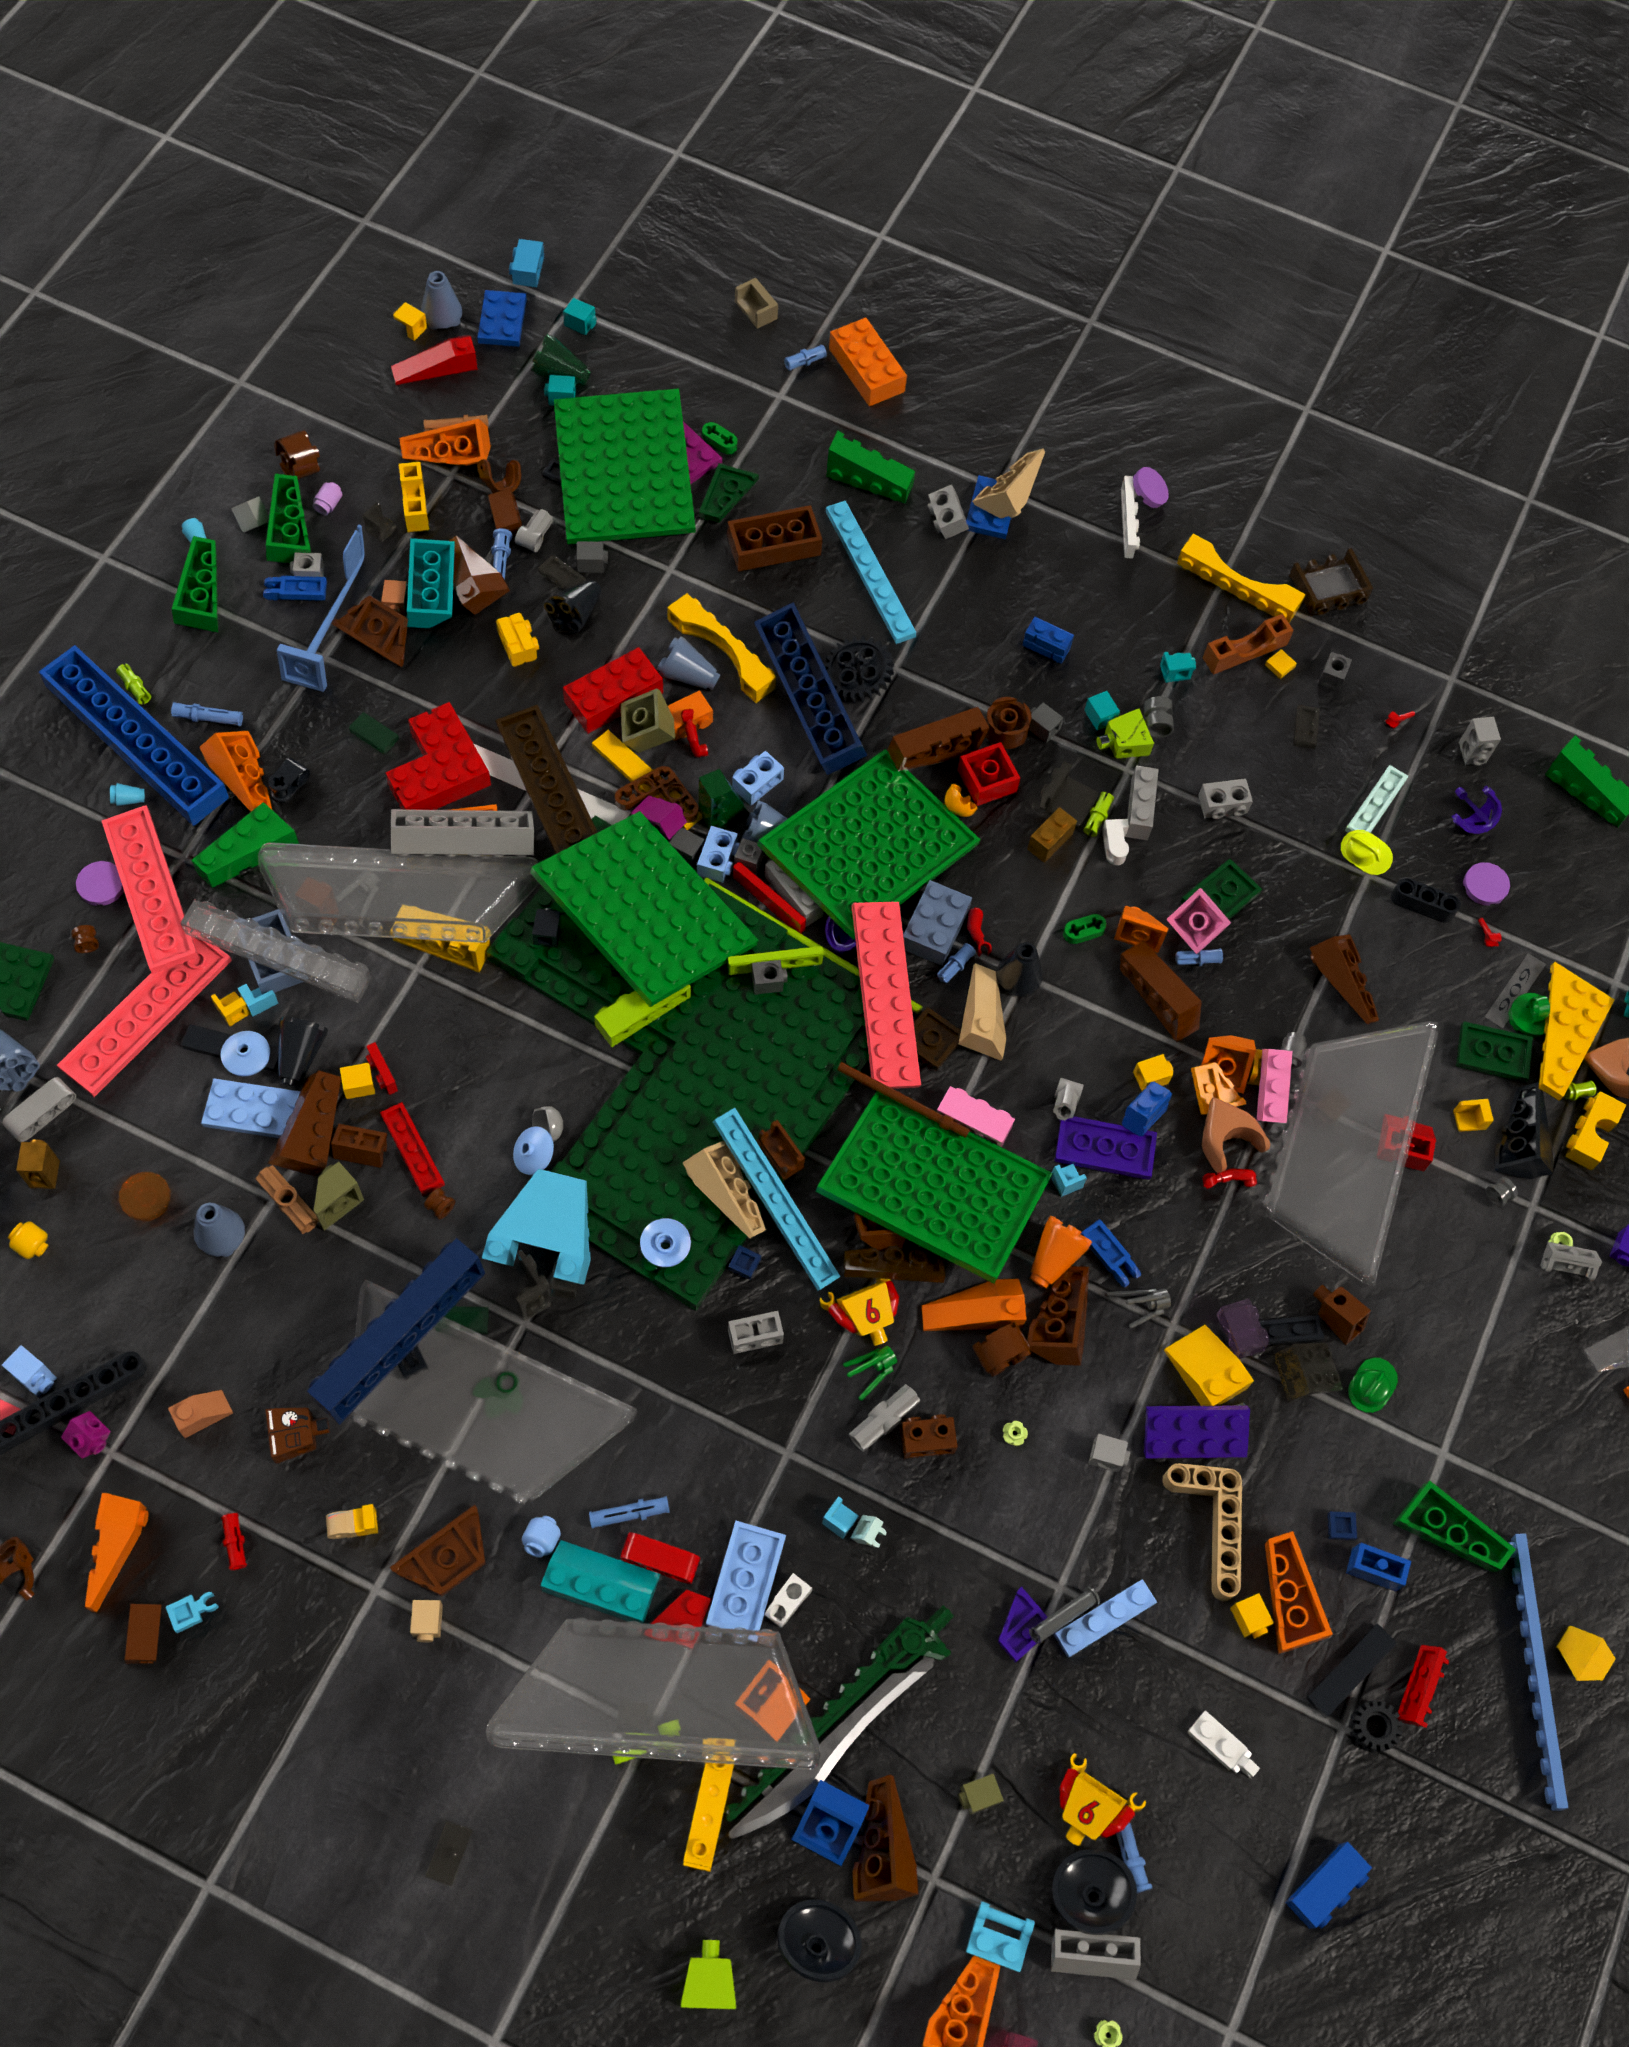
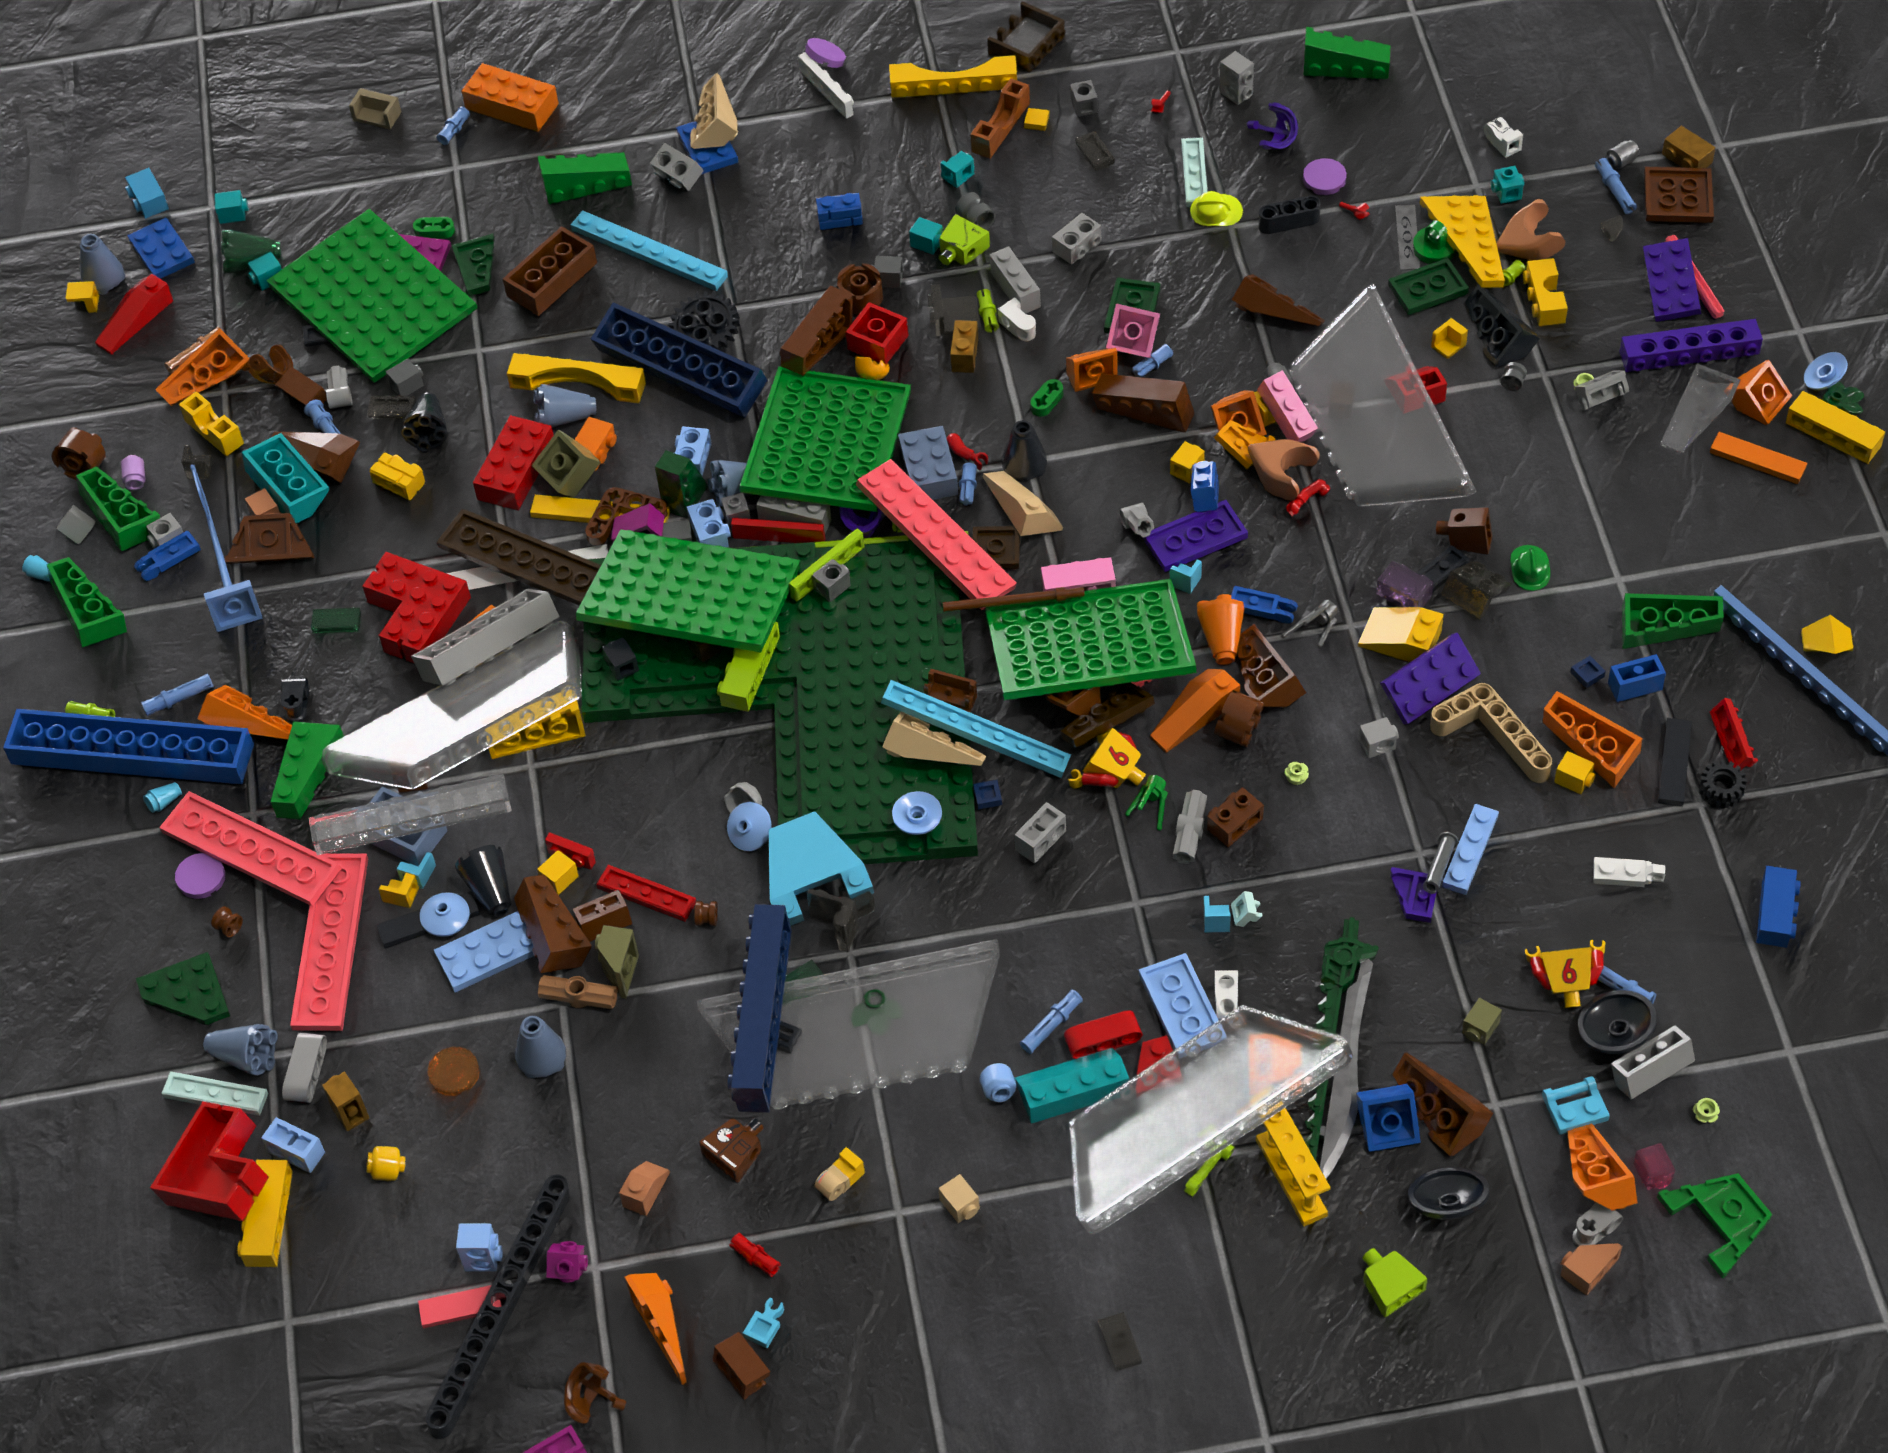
camera: 25 degrees left, 10 degrees down
(446, 1556) = (935, 1148): reddish brown wing -> none
(691, 732) = (623, 463): red arm -> none

